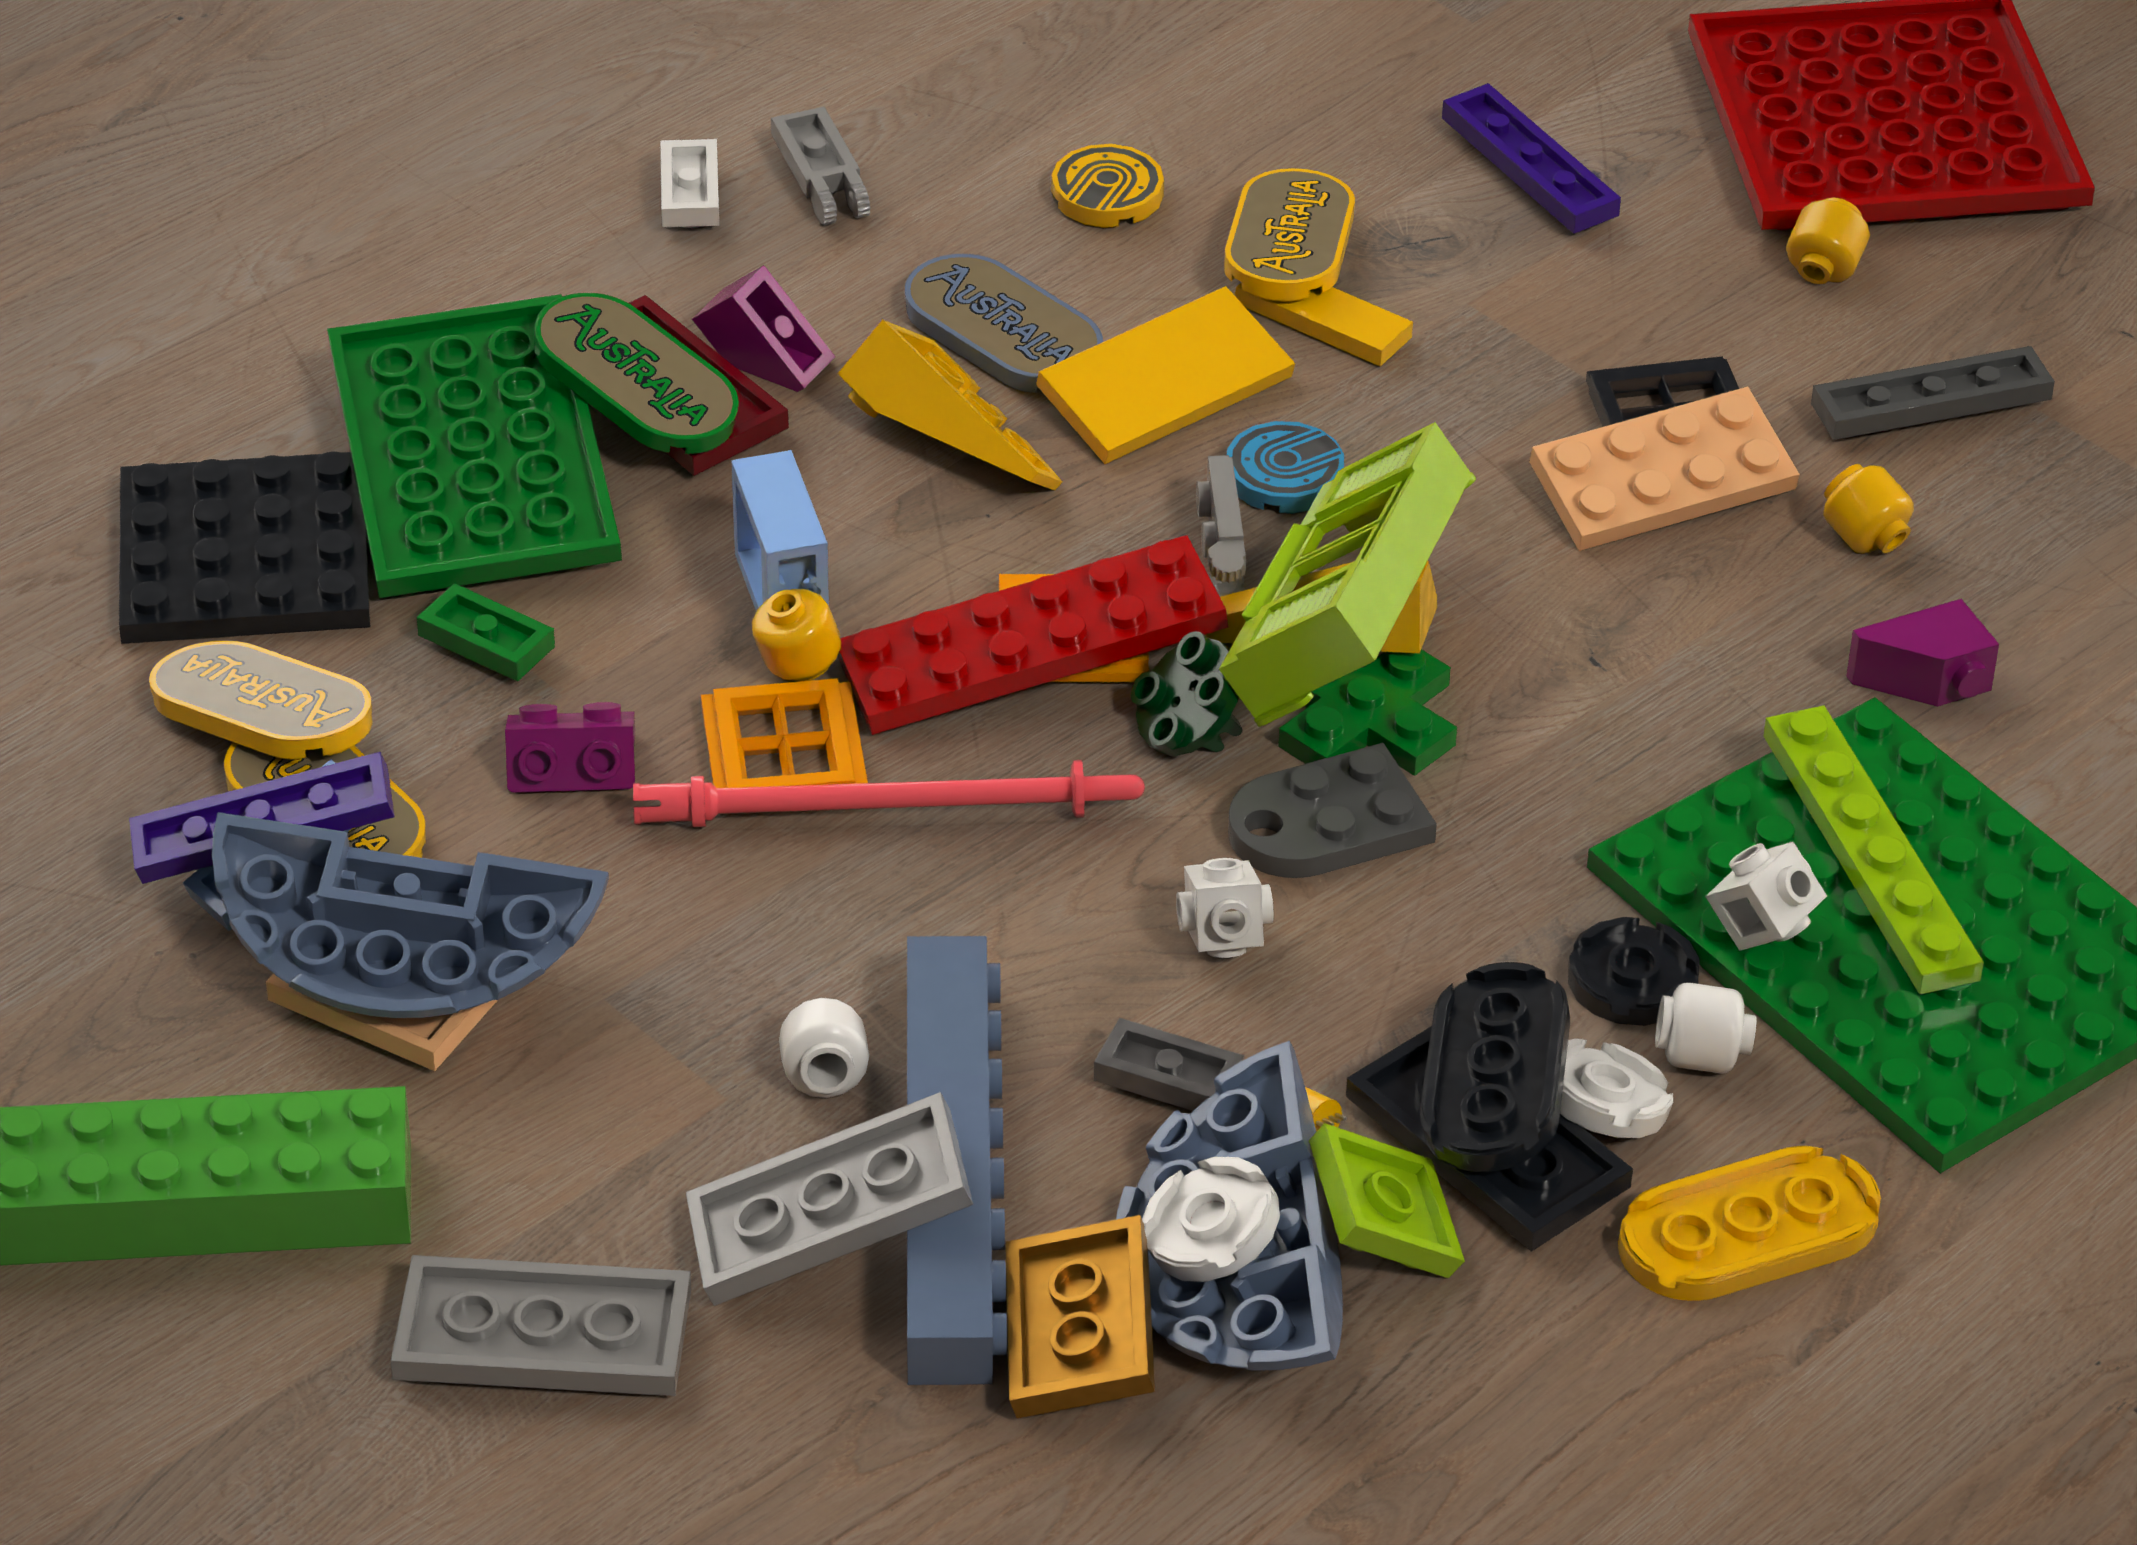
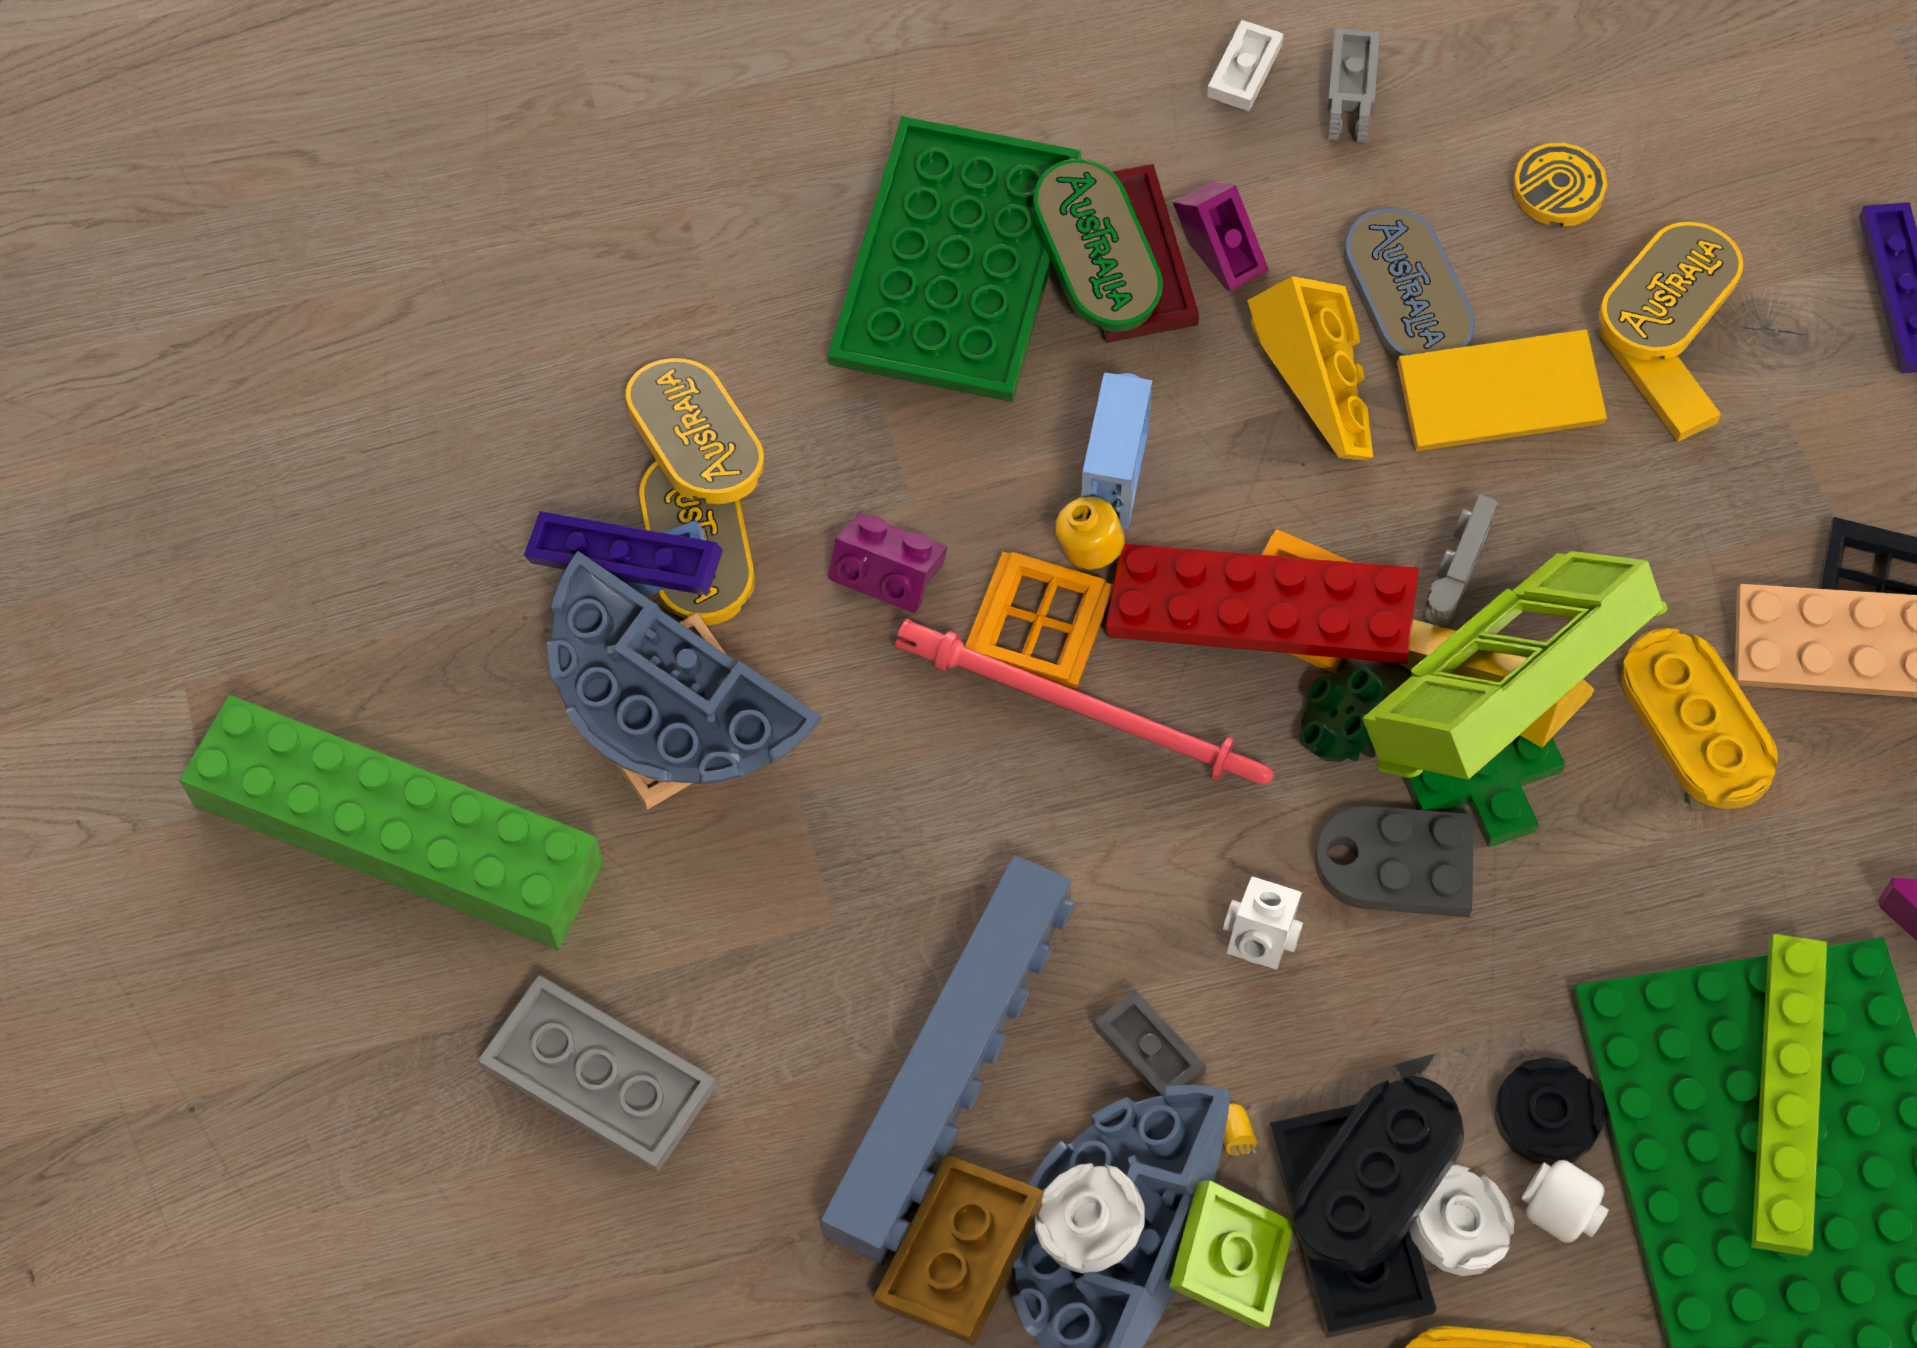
camera: 30 degrees right, 20 degrees up
(241, 548) = (756, 280): black plate -> none
(486, 632) = (881, 431): green plate -> none
(824, 1047) = (912, 919): white head -> none
(828, 1198) = (833, 1069): light grey plate -> none
(1283, 464) = (1547, 512): tile -> none
(1562, 587) = (1699, 719): none -> yellow tile
(1779, 894) = (1671, 1114): white brick -> none

